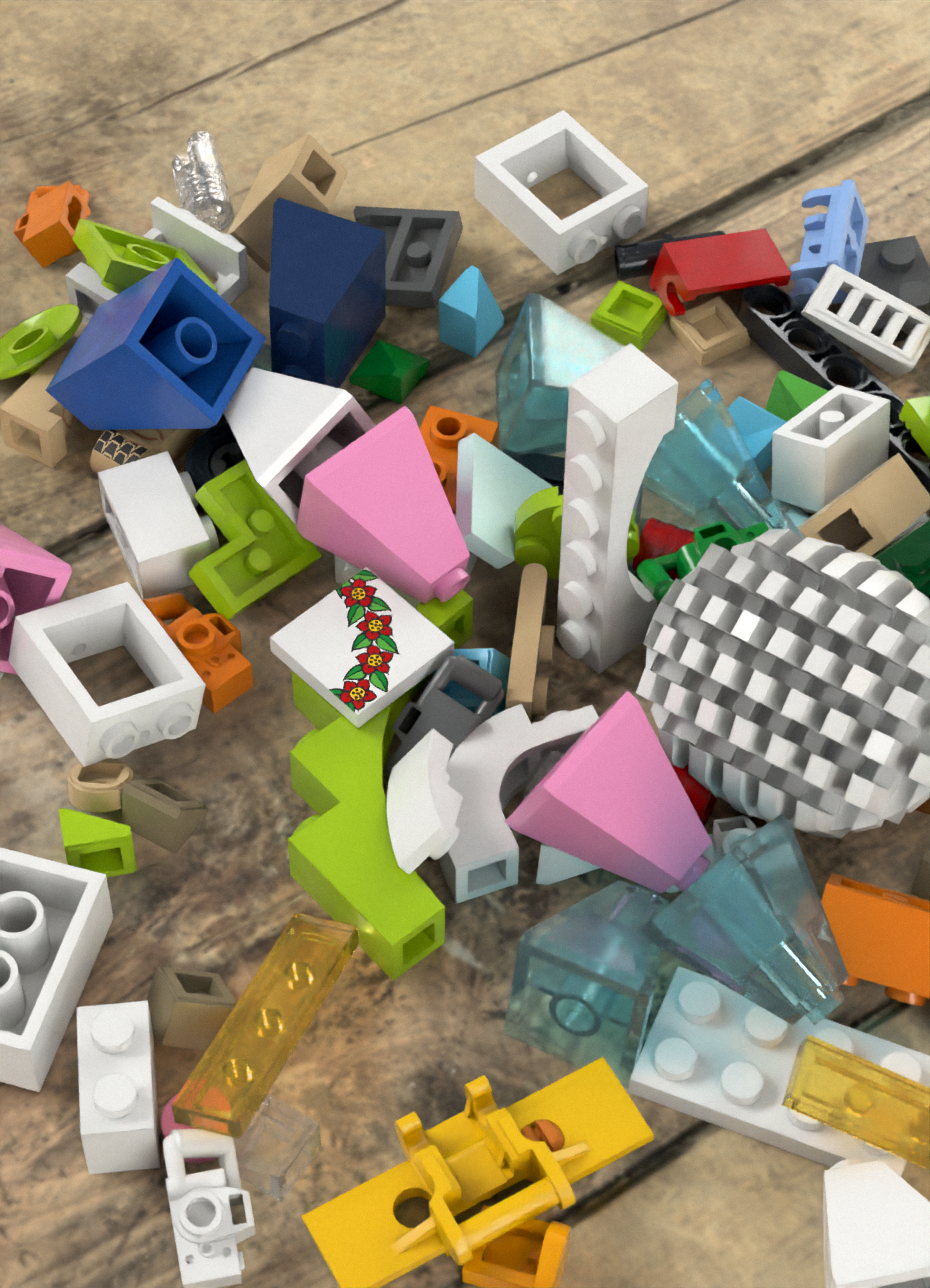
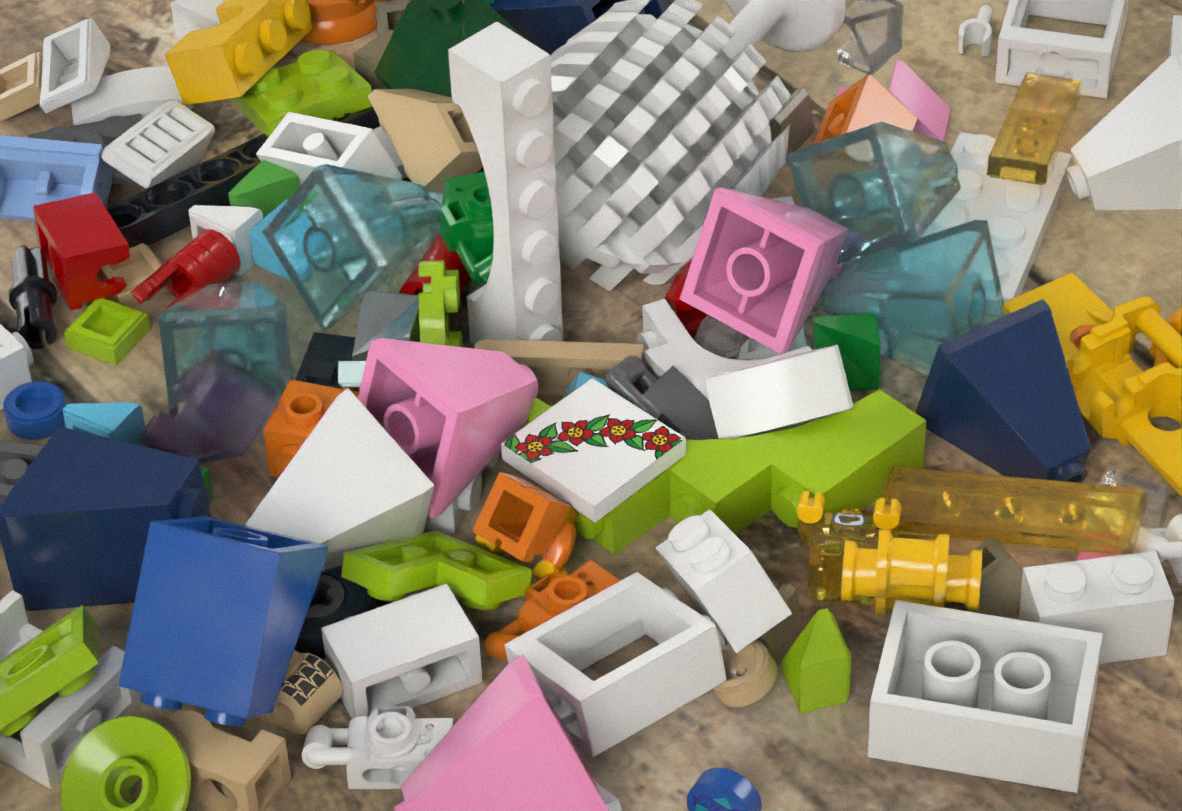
camera: 90 degrees left, 10 degrees down
(60, 516) = (379, 747): none -> white piece
(135, 883) = (911, 572): none -> yellow axle
(174, 746) = (723, 579): none -> white brick
(246, 875) = (826, 537): none -> clear yellow piece
(281, 598) = (527, 524): none -> orange piece
(421, 1043) = (1009, 398): none -> dark blue slope
(466, 372) = (215, 413): none -> clear purple slope
(521, 271) = (34, 410): none -> blue tile
(542, 895) = (858, 346): none -> green slope
(694, 360) = (202, 262): none -> red hinge
(749, 377) = (230, 221): none -> white slope

